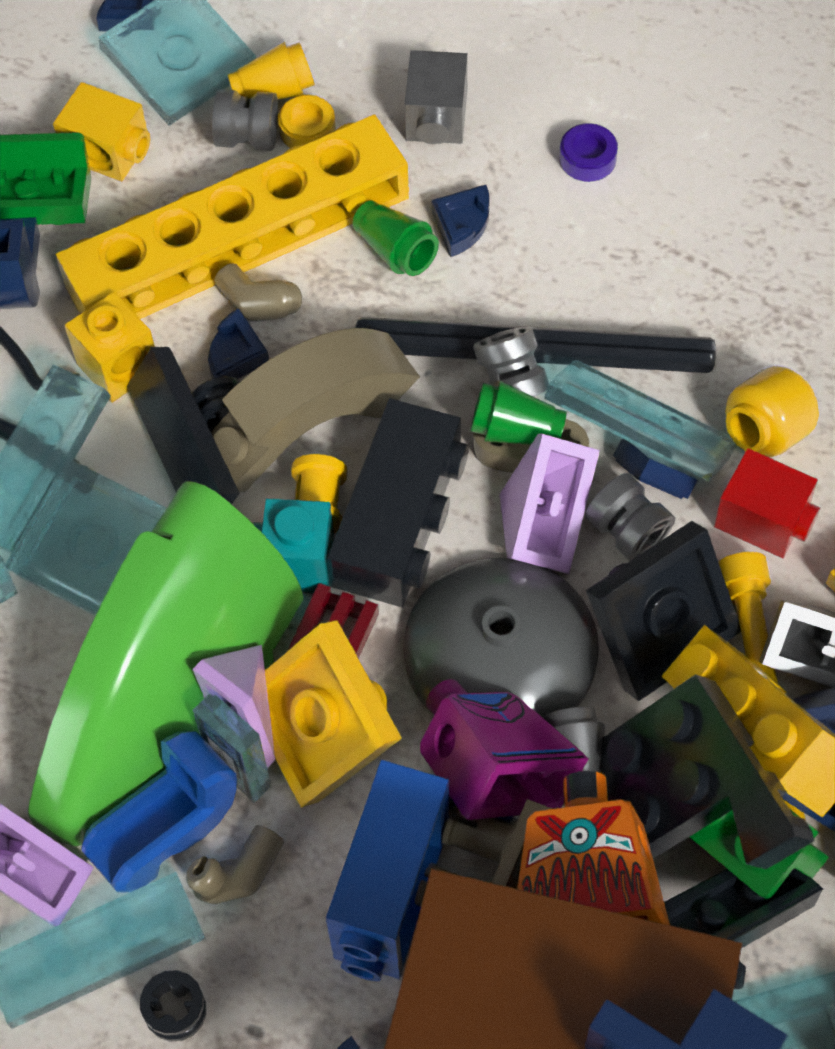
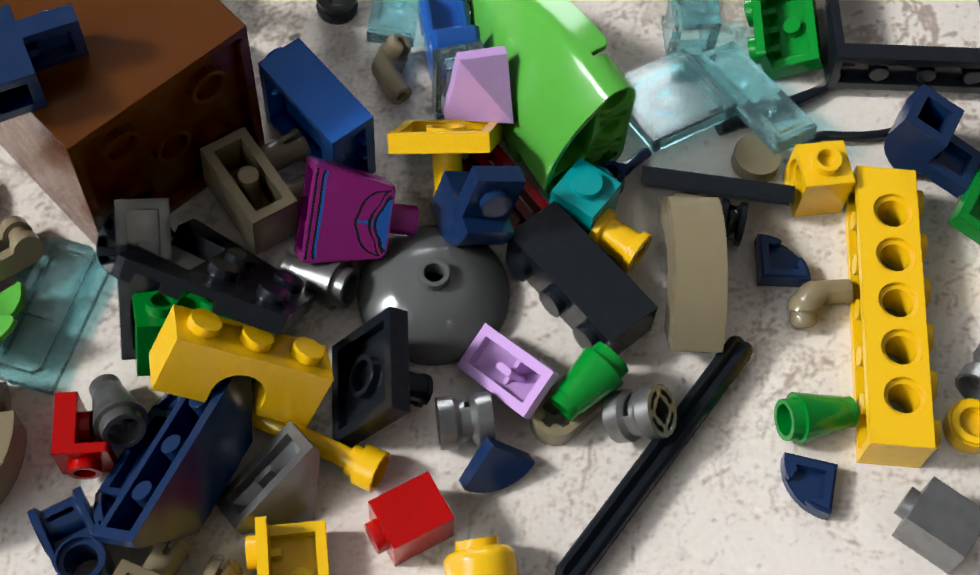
camera: 115 degrees right, 0 degrees up
(116, 431) = (754, 159): none -> dark tan tile
(401, 627) = (477, 204): none -> dark blue brick
(592, 853) = (211, 177): torso -> none
(641, 419) = (540, 483): clear light blue tile -> none

